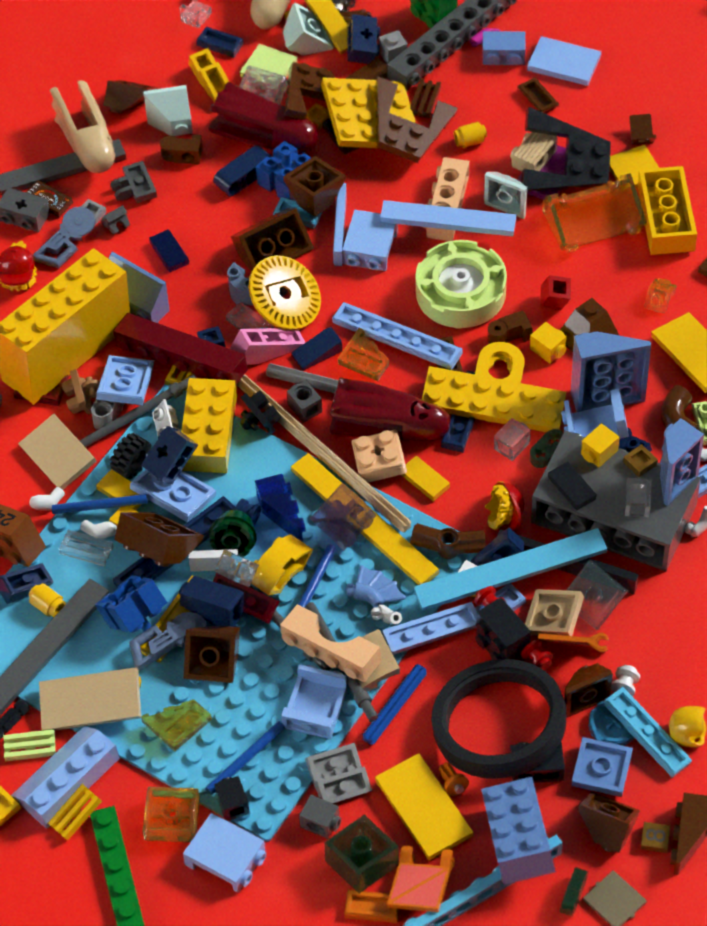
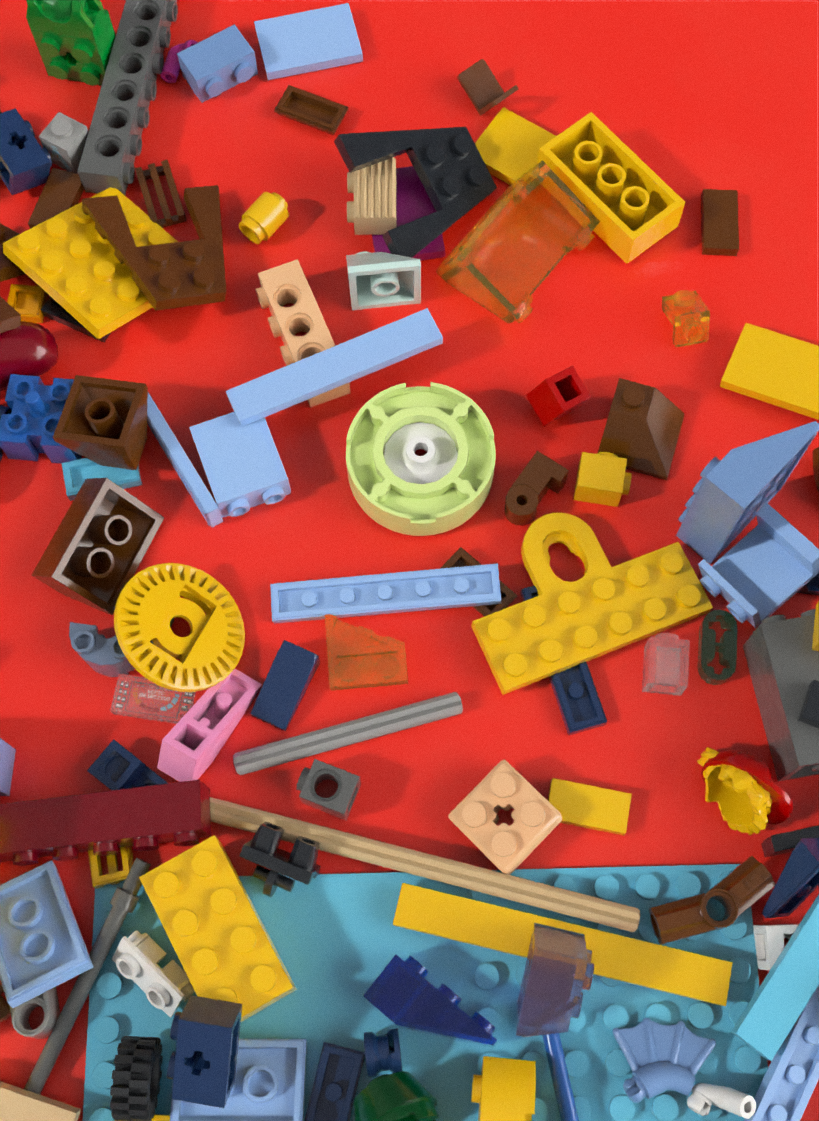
camera: 35 degrees left, 15 degrees up
(370, 409) = (458, 742): dark red piece -> none

